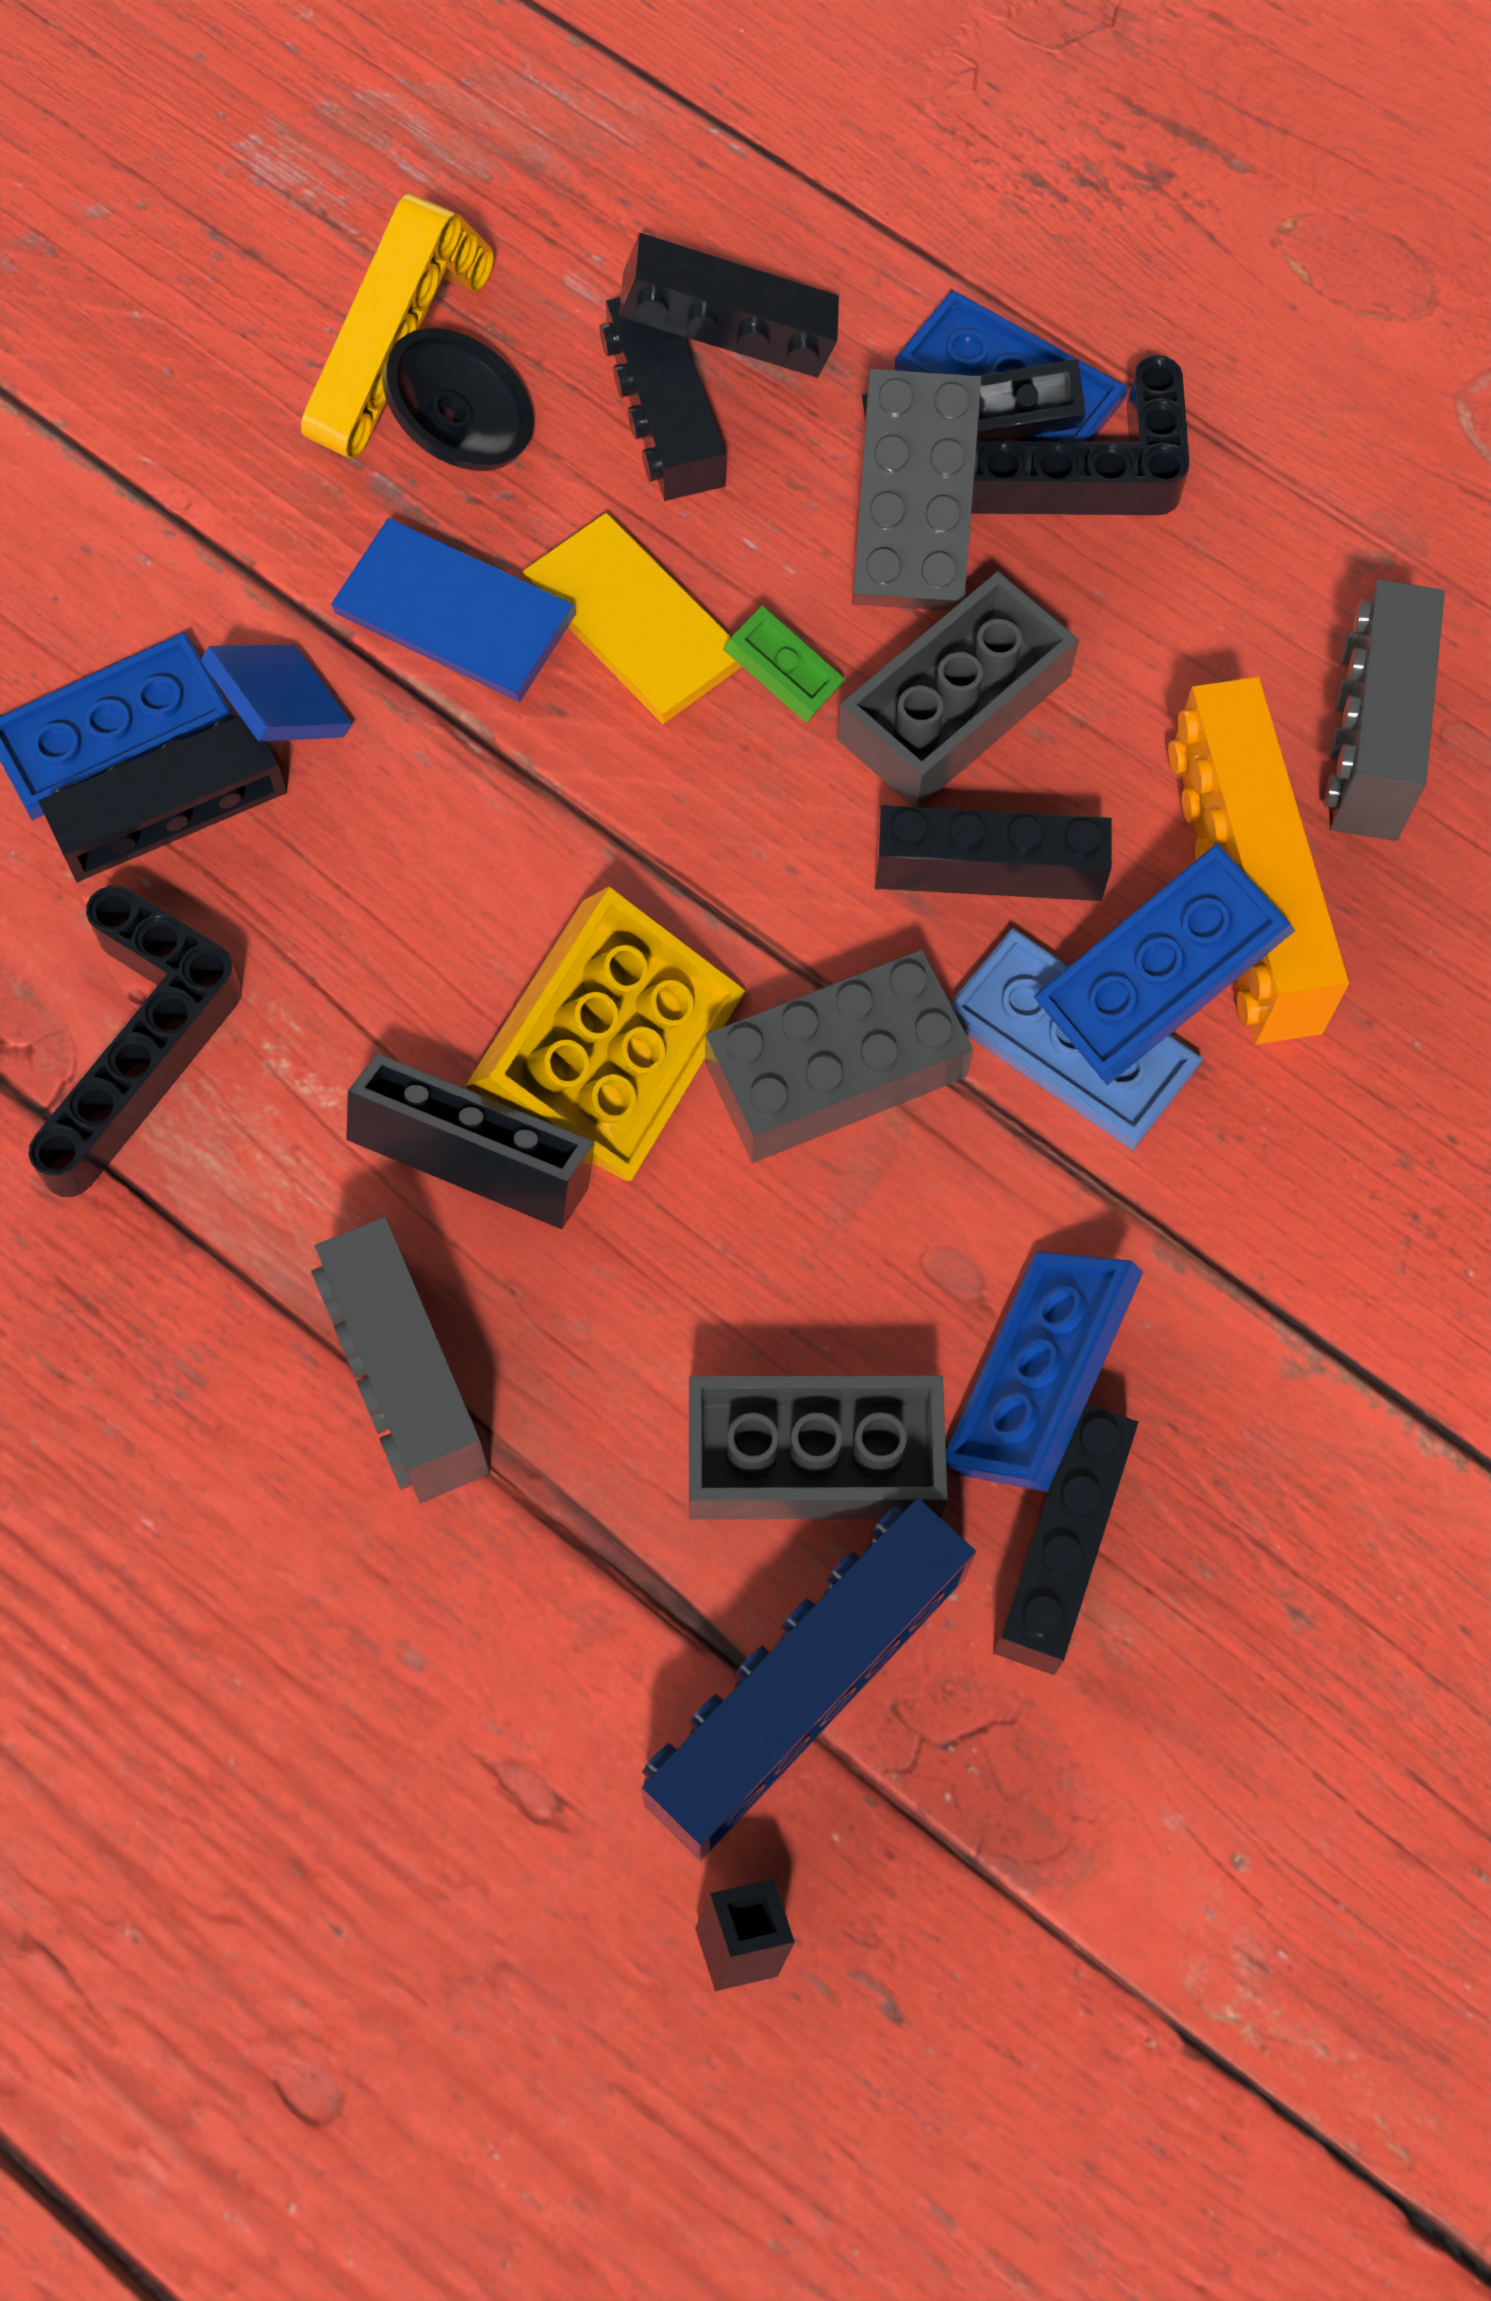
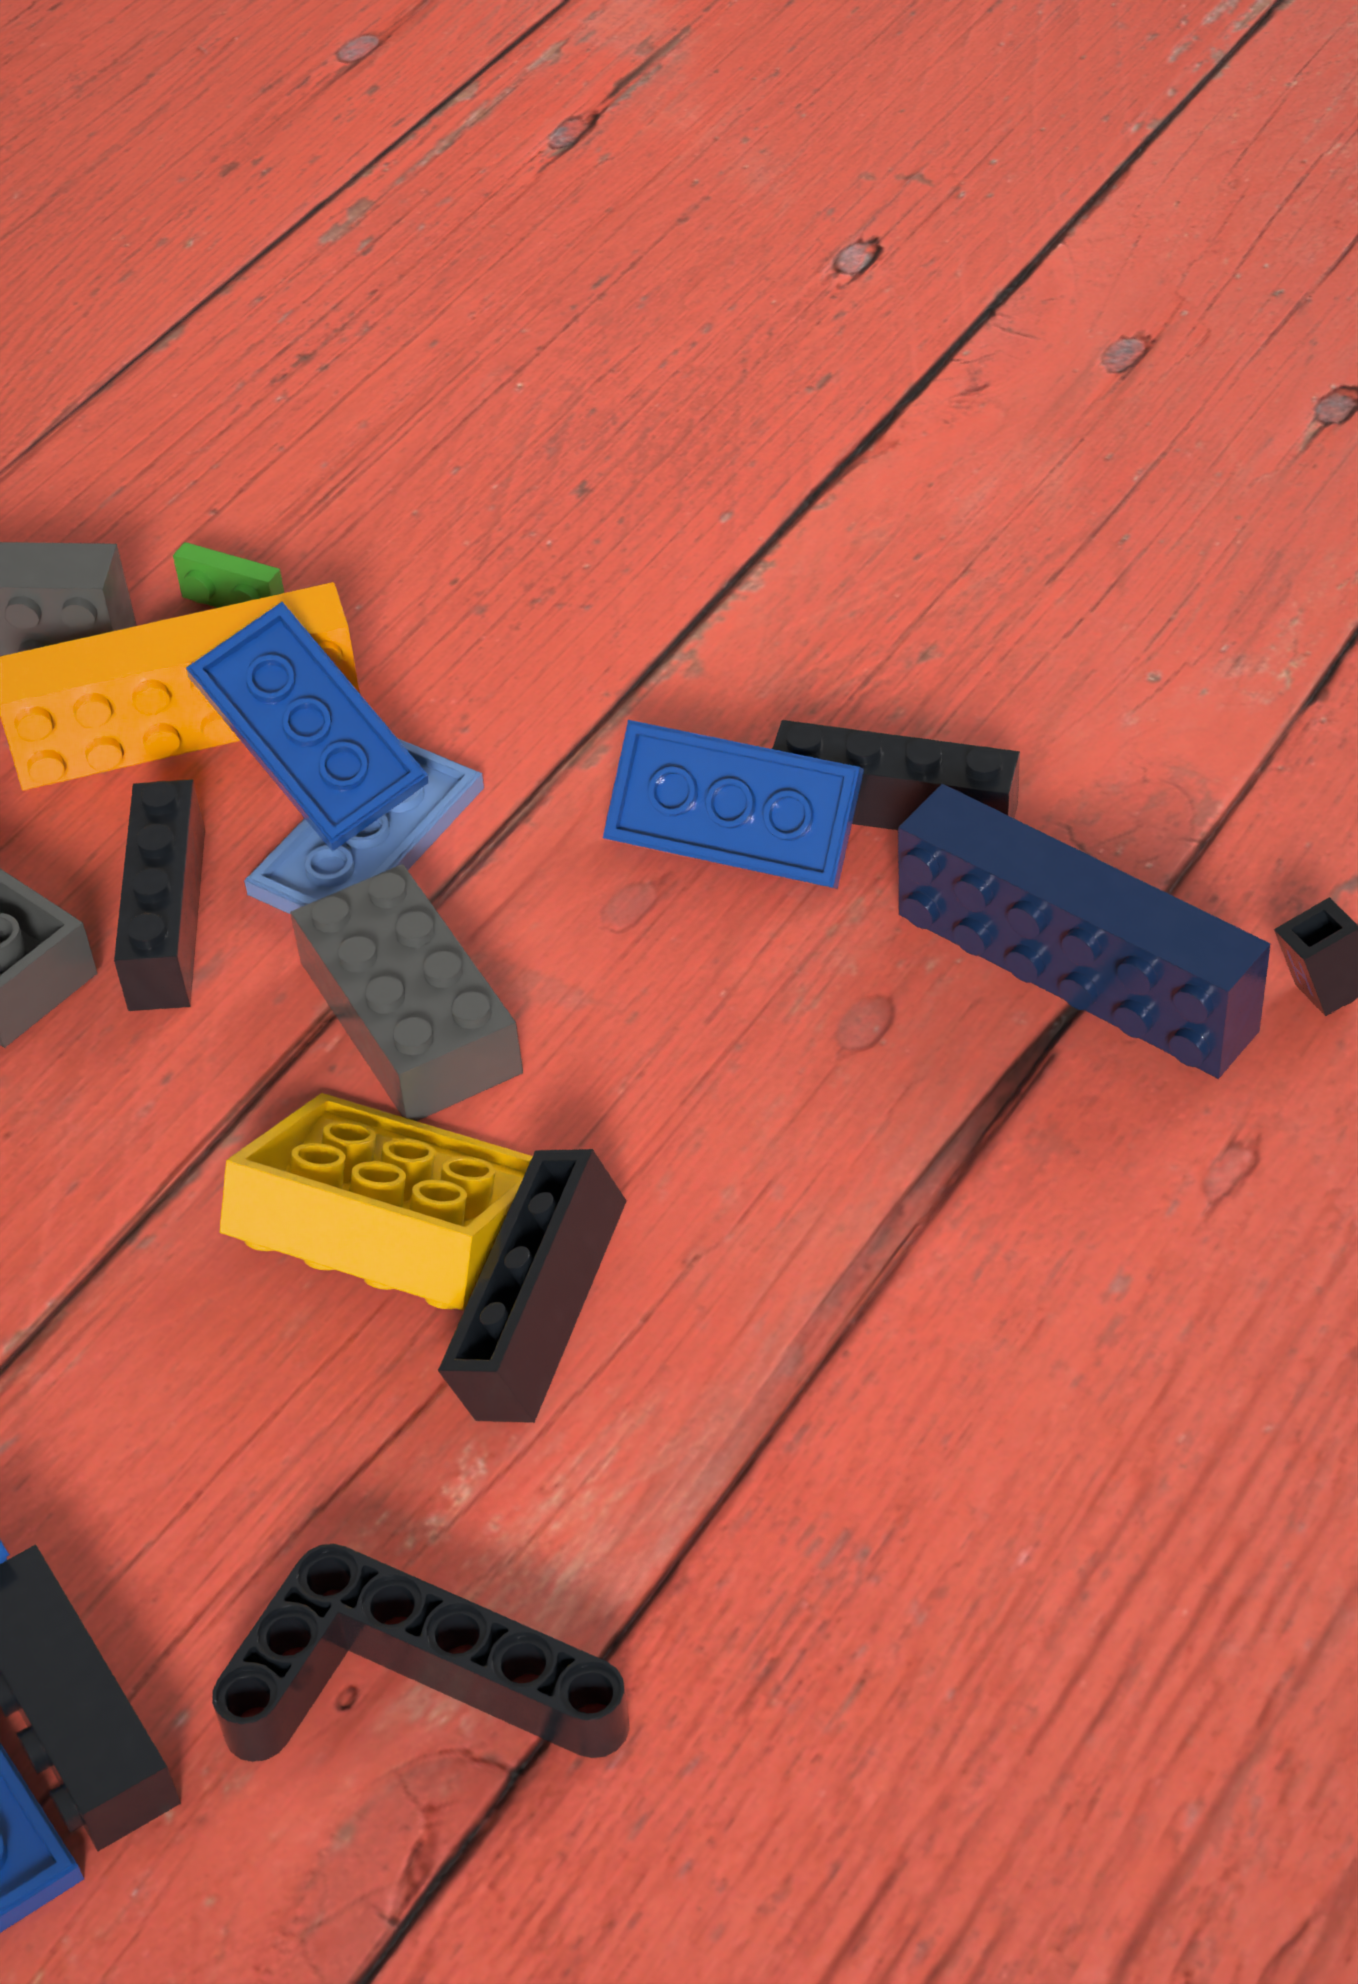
camera: 90 degrees left, 20 degrees down
(395, 1345) = (808, 1294): dark grey brick -> none
(815, 1446) = (843, 959): dark grey brick -> none
(1444, 897) = (223, 578): none -> bright green plate

